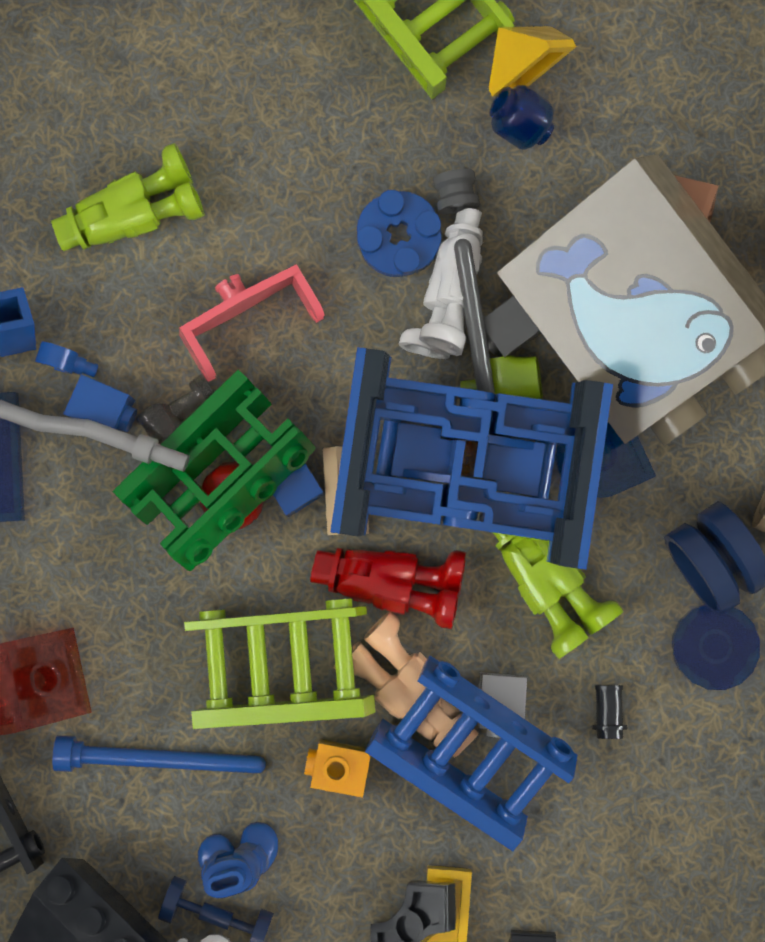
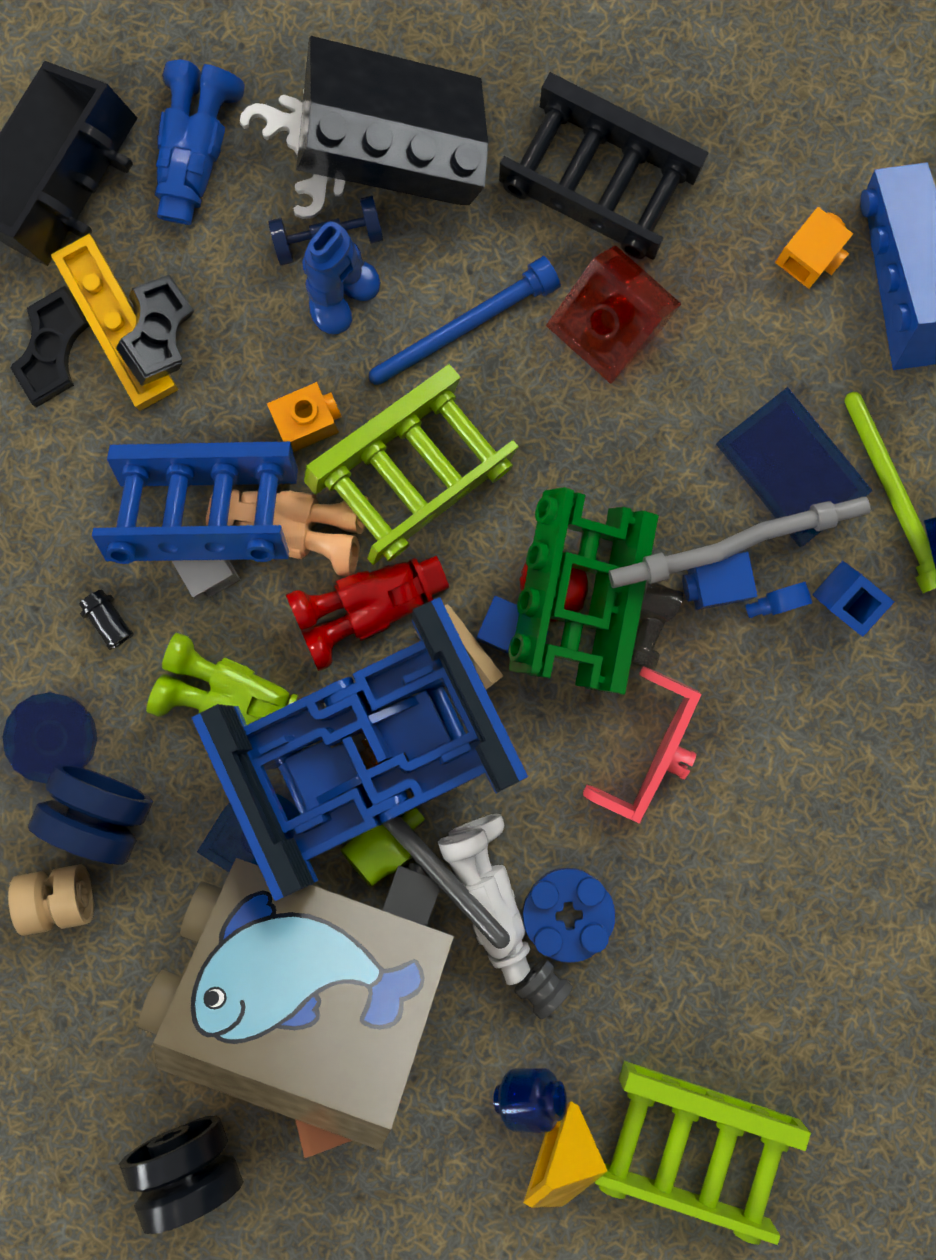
camera: 145 degrees right, 0 degrees up
(125, 205) = (826, 772): lime piece -> none

